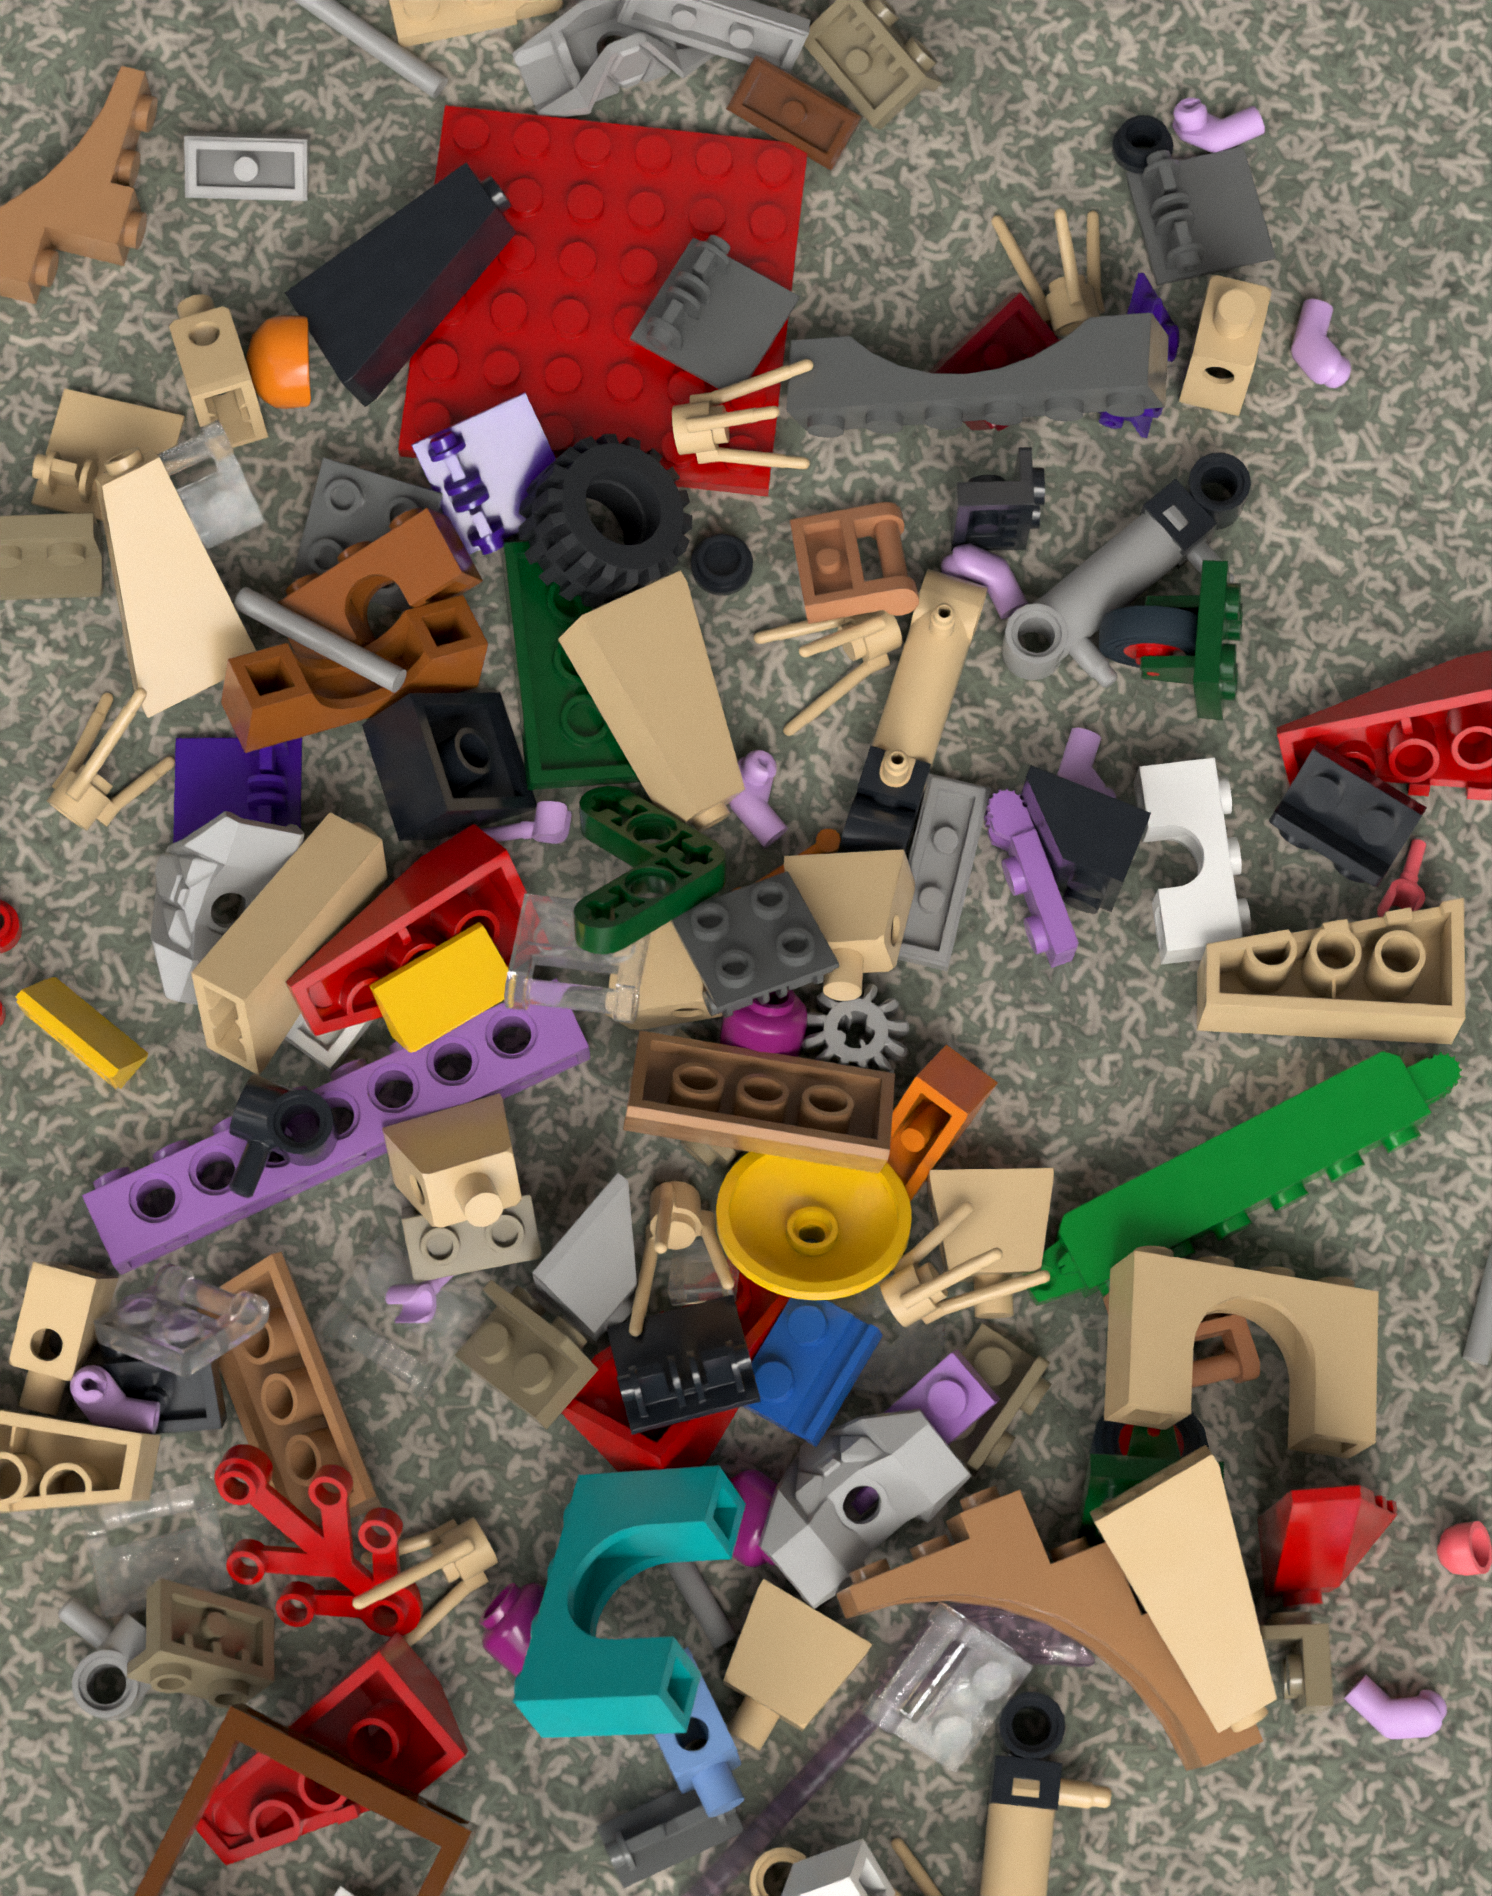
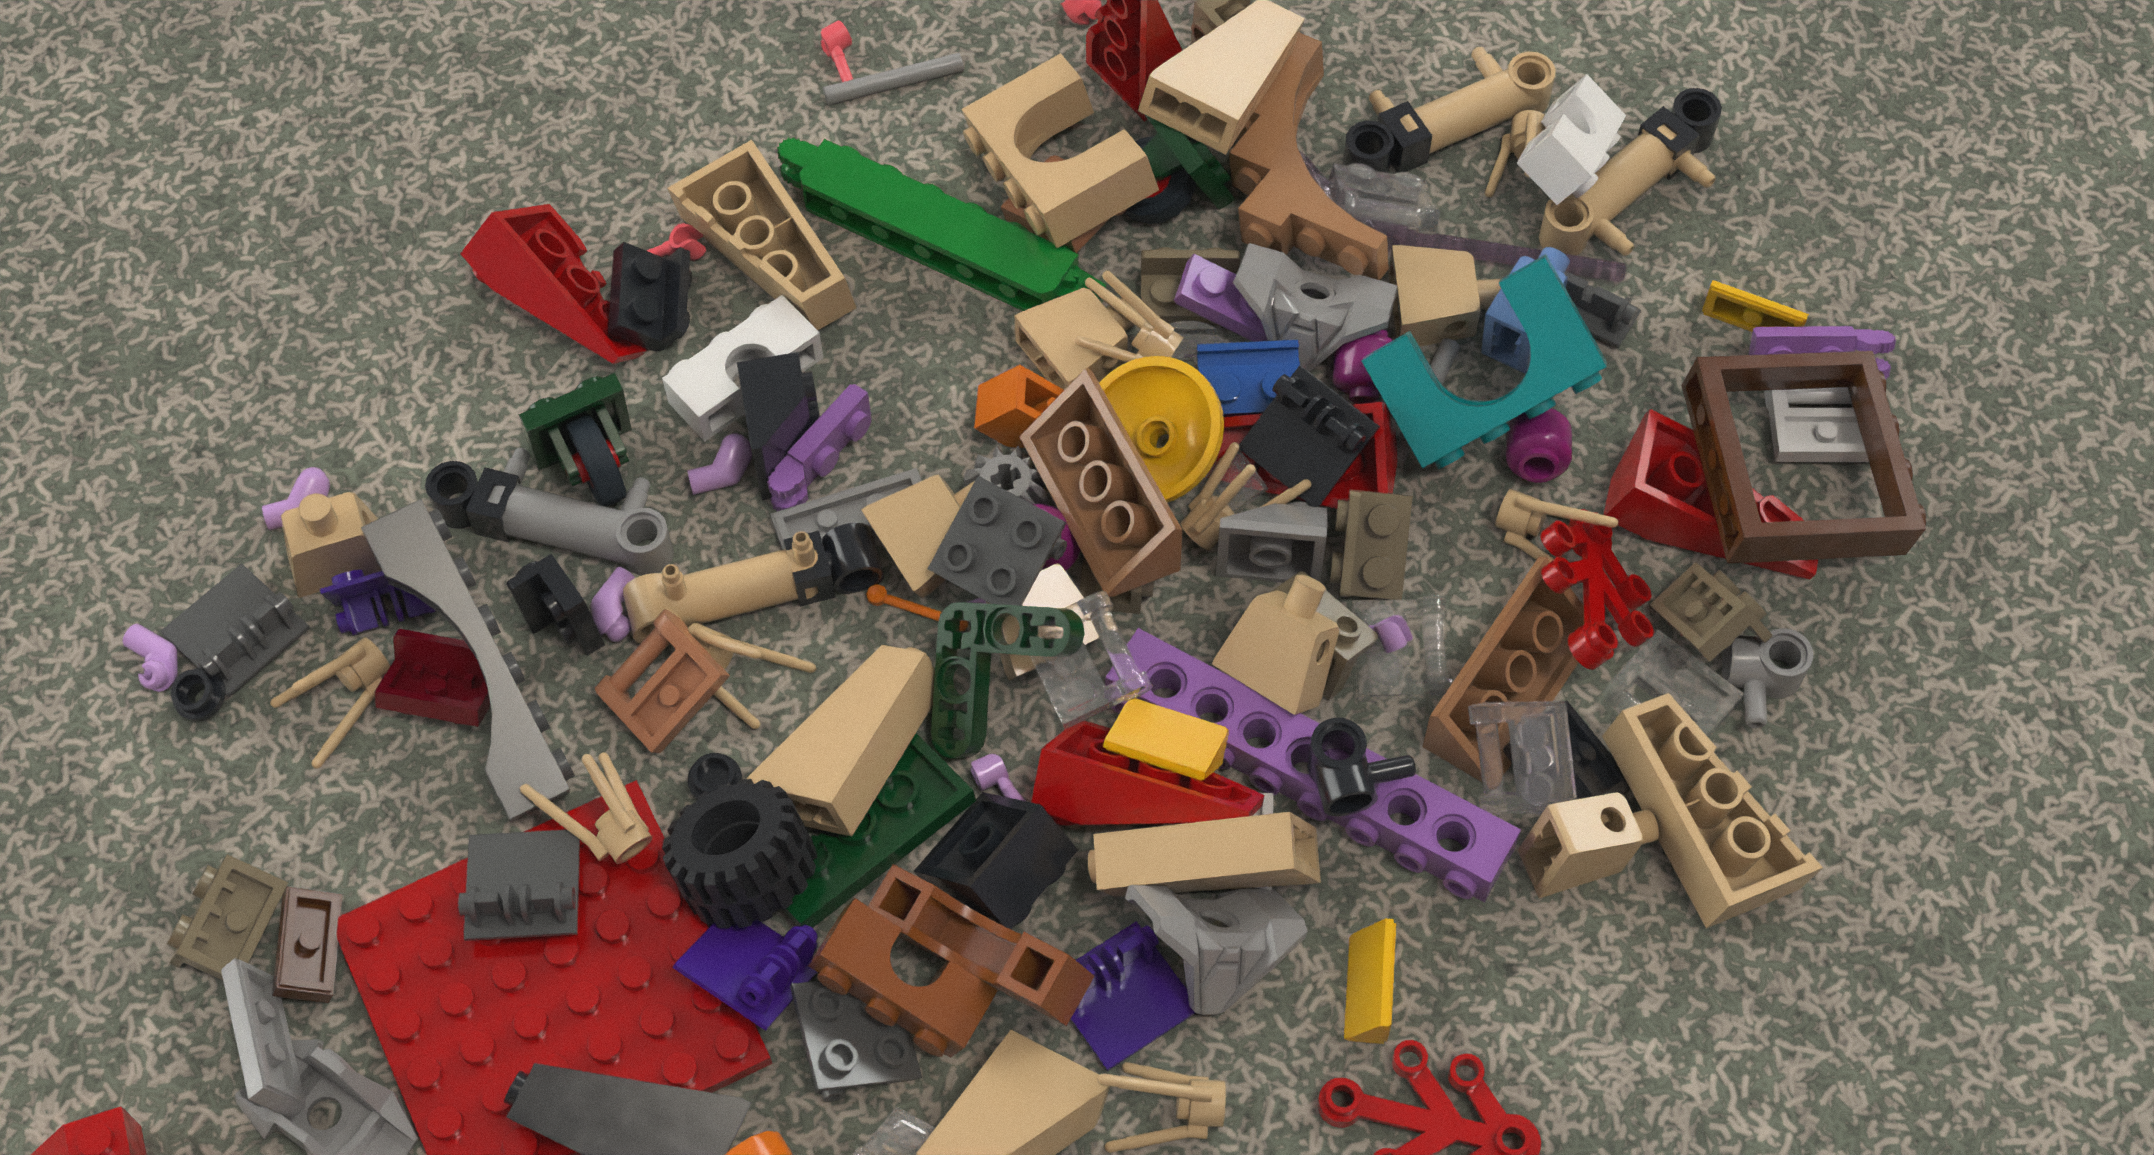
camera: 120 degrees left, 15 degrees down
(108, 1405) = (1613, 770): lavender arm -> none
(320, 639) = (969, 984): light grey bar -> none
(752, 804) = (893, 634): lavender arm -> none

